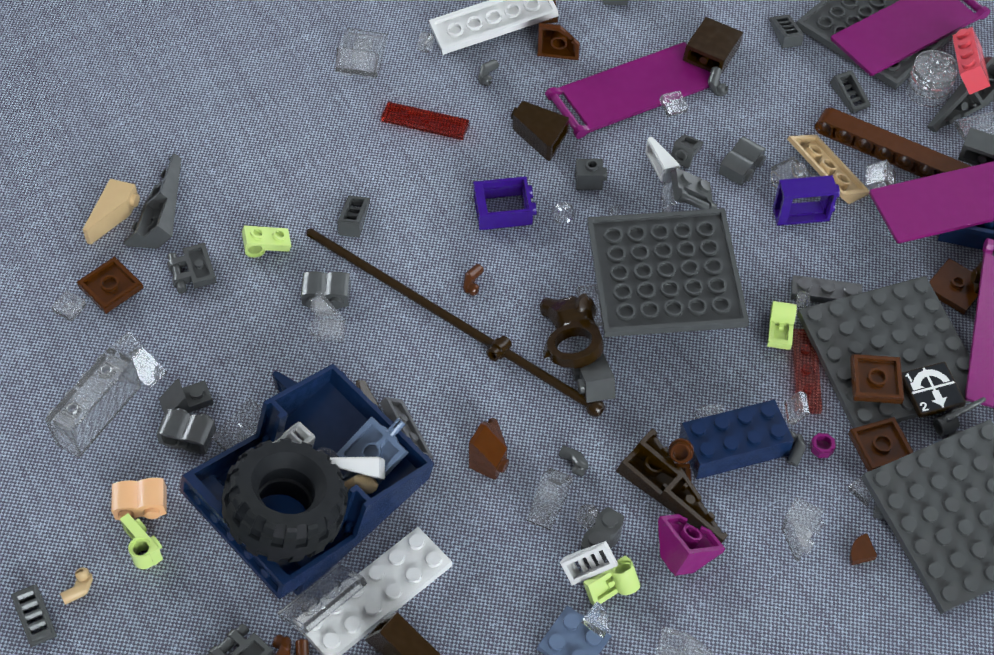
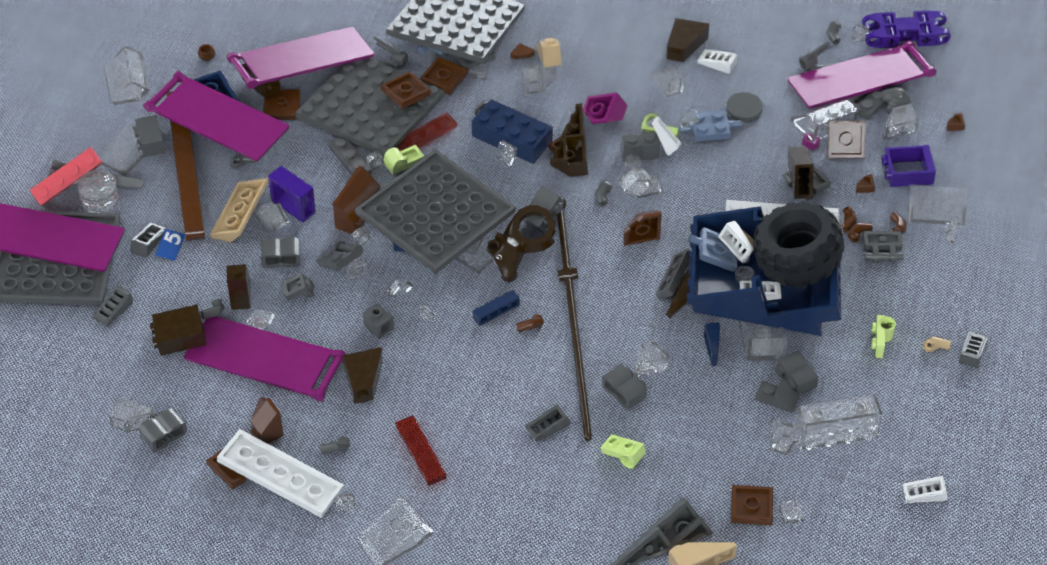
camera: 130 degrees left, 5 degrees down
(139, 498) = (860, 358): light nougat brick -> none
(198, 264) = (683, 469): dark grey plate -> none
(503, 188) = (466, 359): dark purple window -> none
(518, 268) = (496, 307): none -> dark blue piece
(660, 159) = (326, 291): white slope -> none
(681, 450) = (552, 139): reddish brown plate -> none
(723, 100) = (239, 286): none -> dark brown slope
(753, 243) = (356, 191): none -> reddish brown slope
(796, 408) = (459, 119): clear tile -> none
(822, 445) = (471, 98): magenta tile -> none
(825, 98) = (170, 244): none -> blue sticker
(828, 554) = (549, 52): none -> tan slope
(880, 175) = (228, 173): clear brick -> none
(932, 389) = (384, 67): tile -> none

